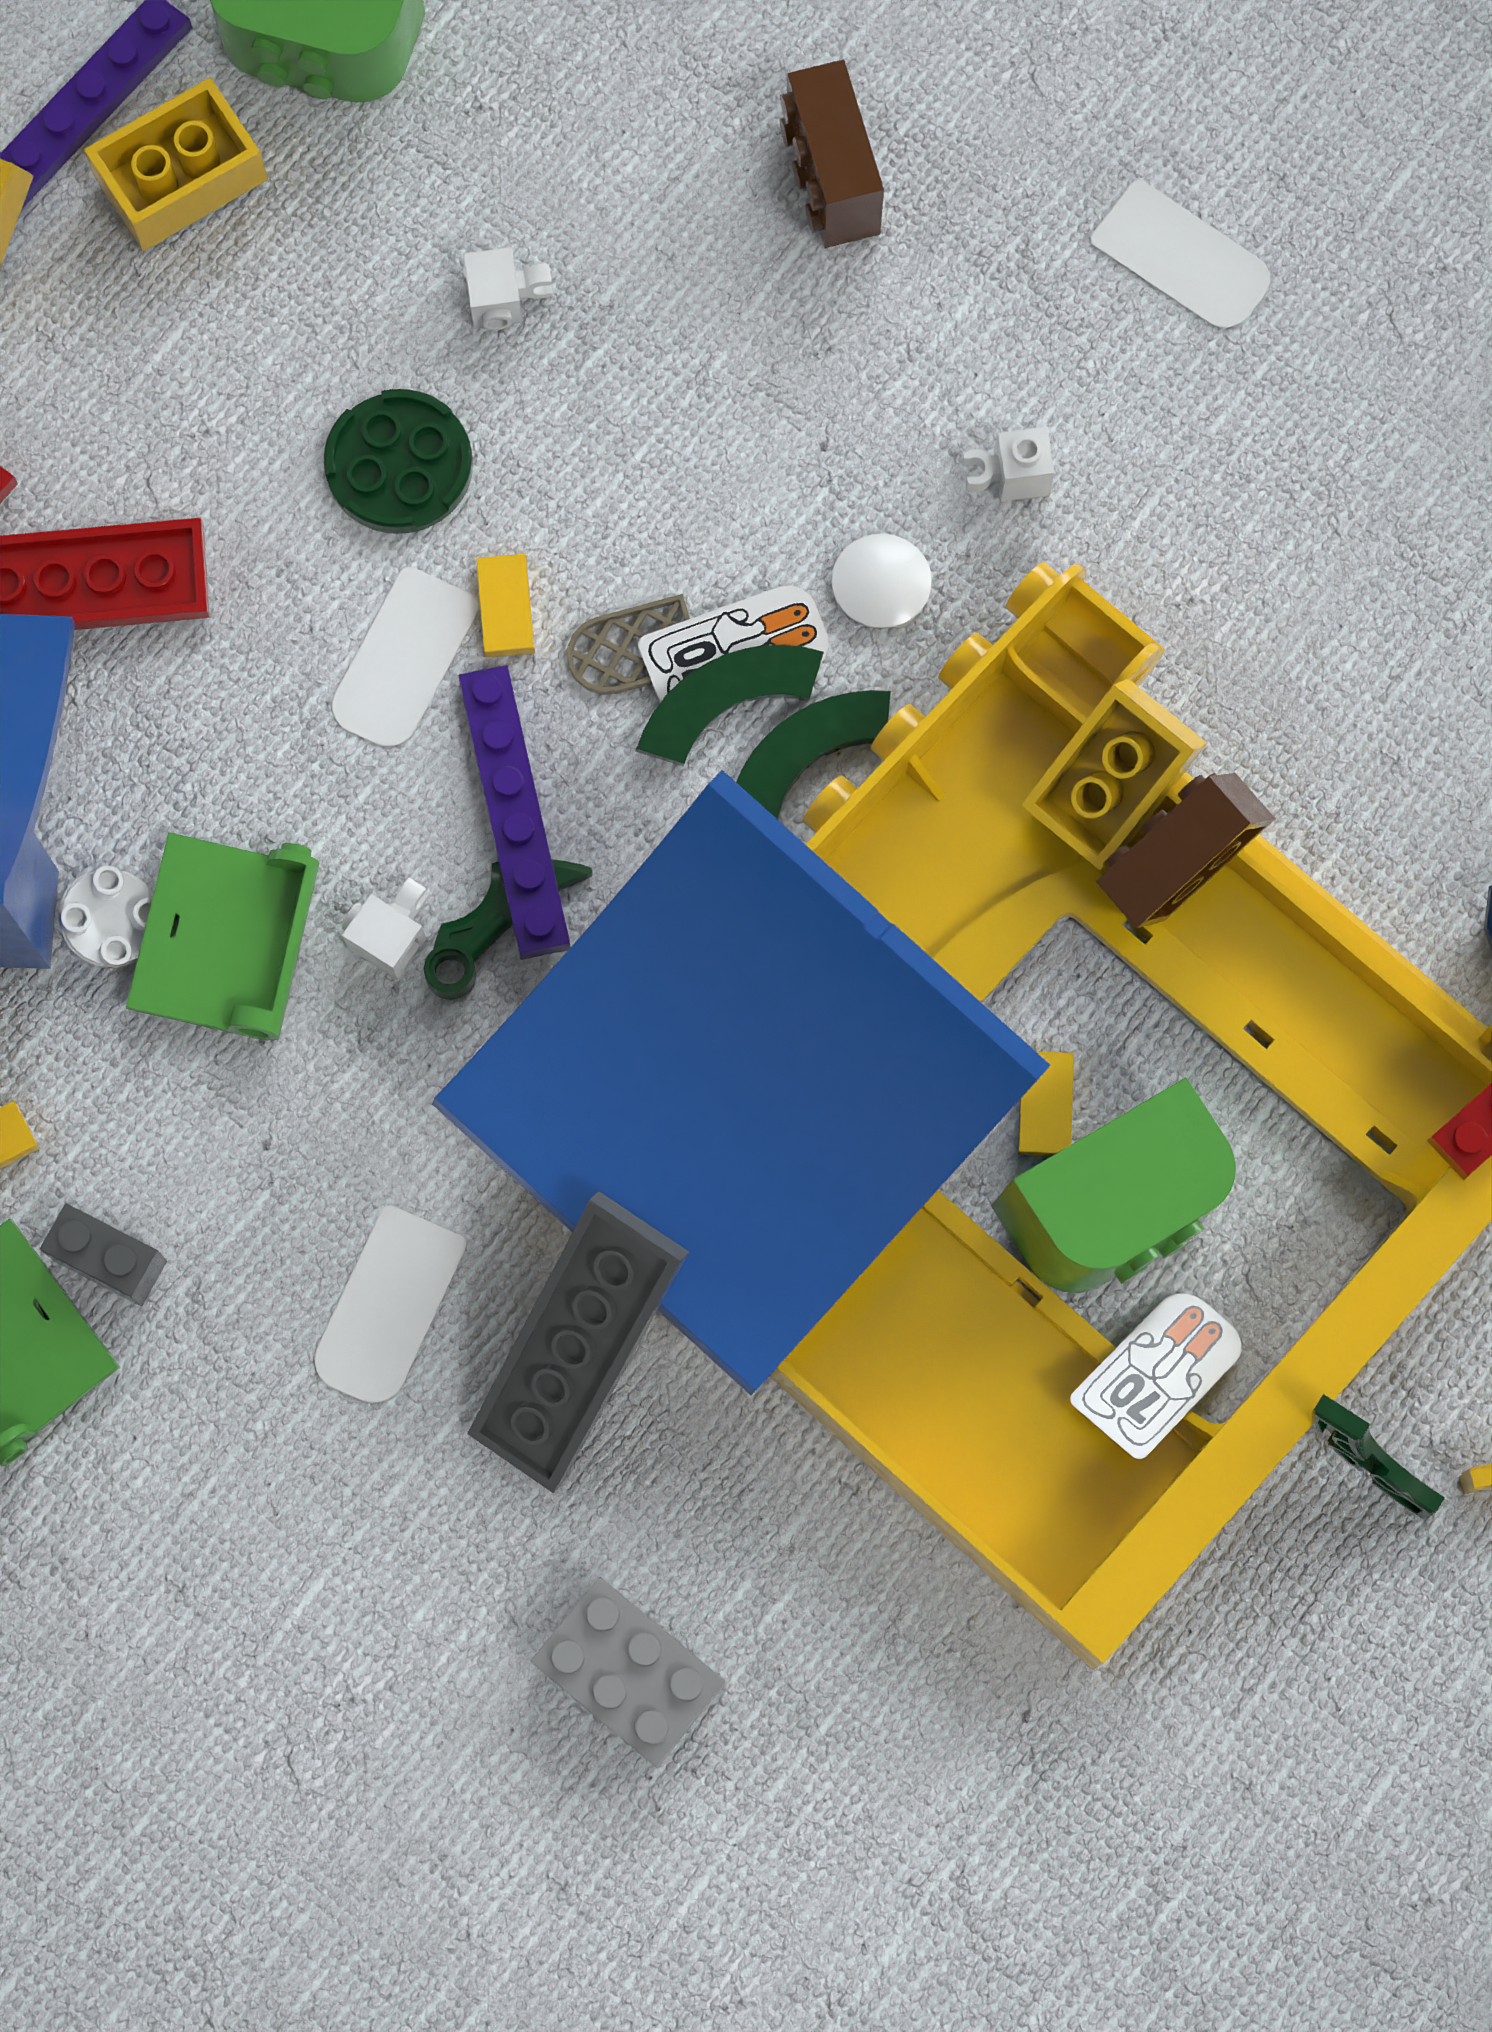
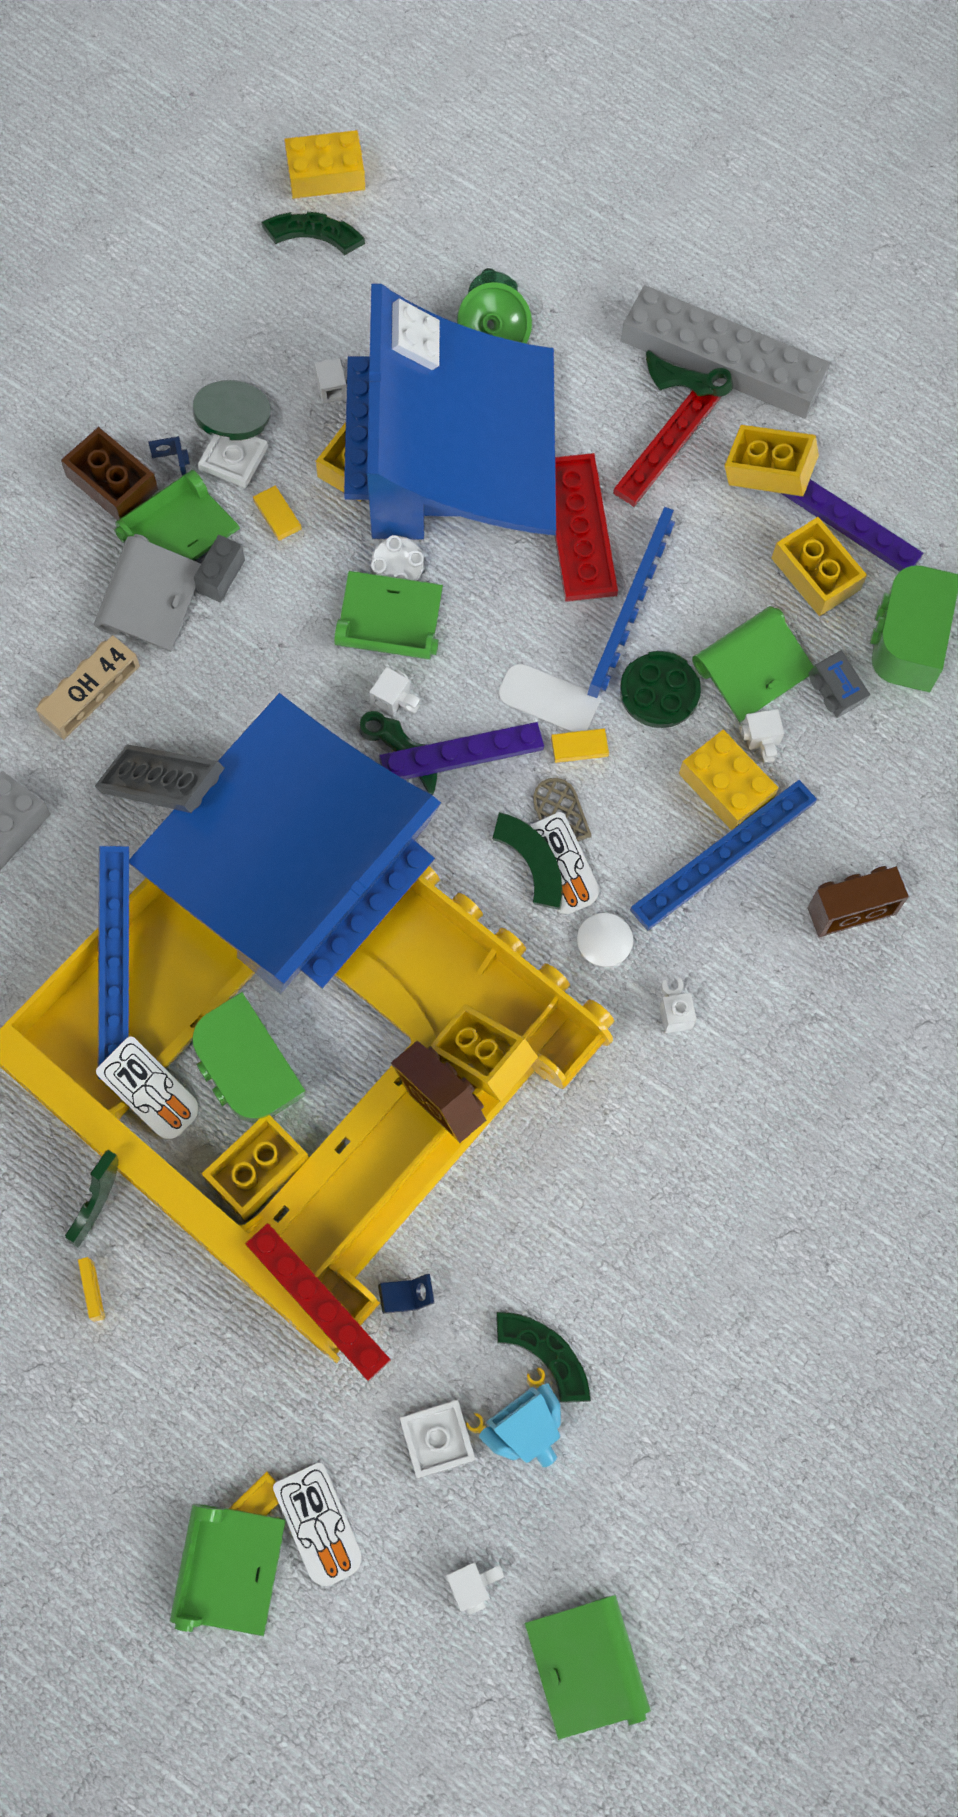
camera: 85 degrees right, 5 degrees down
(145, 1402) = (143, 592): none -> light grey door
(238, 502) = (629, 611): none -> blue plate
(345, 1509) = (87, 687): none -> tan brick
(356, 293) = (751, 659): none -> bright green door
(387, 1305) = (196, 706): white sticker -> none
(412, 153) = (838, 684): none -> dark grey brick
(592, 351) = (727, 779): none -> yellow brick
(730, 372) = (723, 855): none -> blue plate
(806, 737) = (505, 895): dark green tile -> none
(920, 1424) = (113, 949): none -> blue plate
(1047, 1108) = (304, 1032): yellow tile -> none
(1182, 256) = (820, 1108): white sticker -> none
(1305, 1181) = (255, 1166): none -> yellow brick

